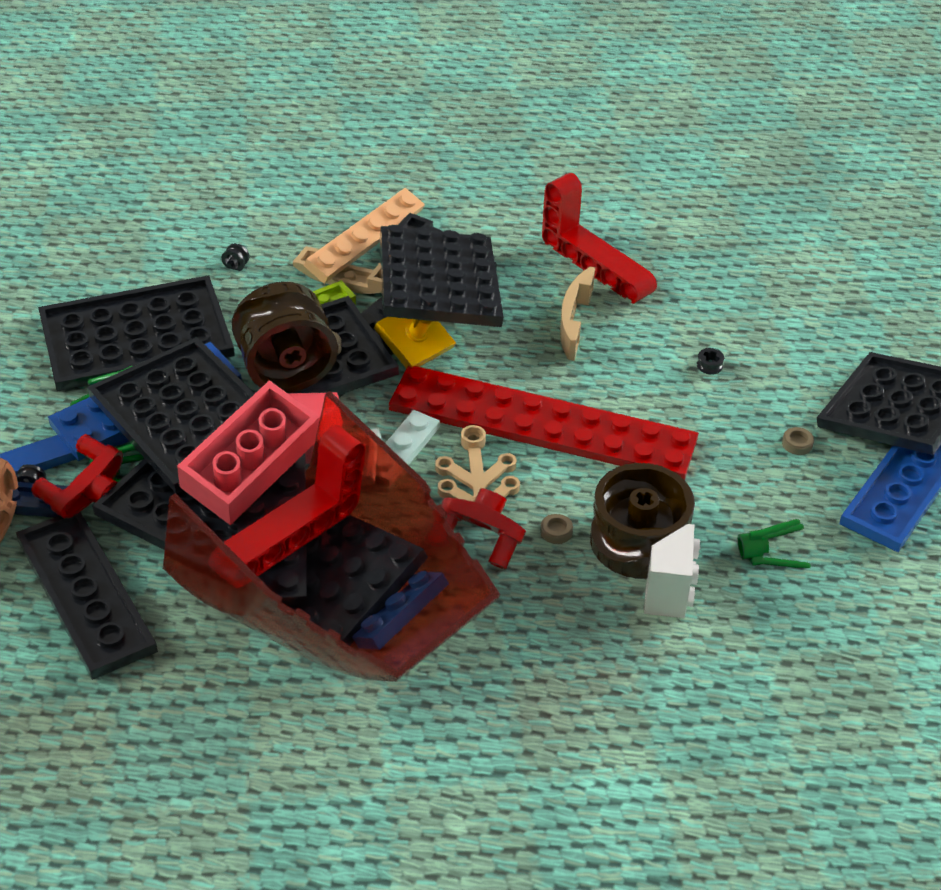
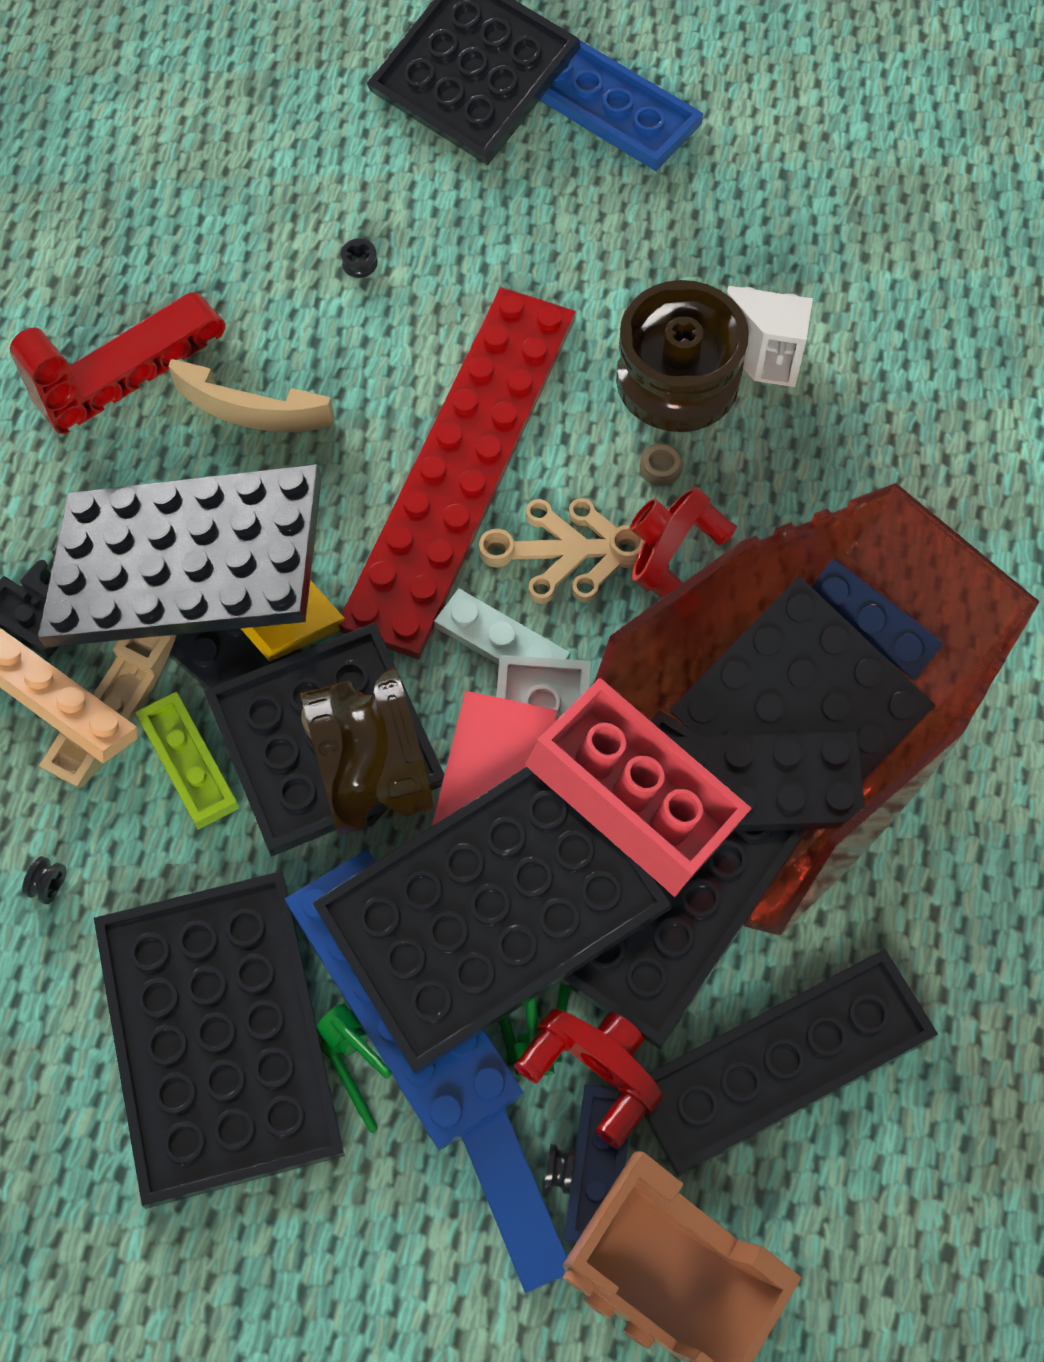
camera: 85 degrees left, 20 degrees up
(309, 512) = (750, 729): red beam -> none
(755, 544) = (698, 255): green plant -> none
(798, 441) = (514, 188): dark tan tile -> none

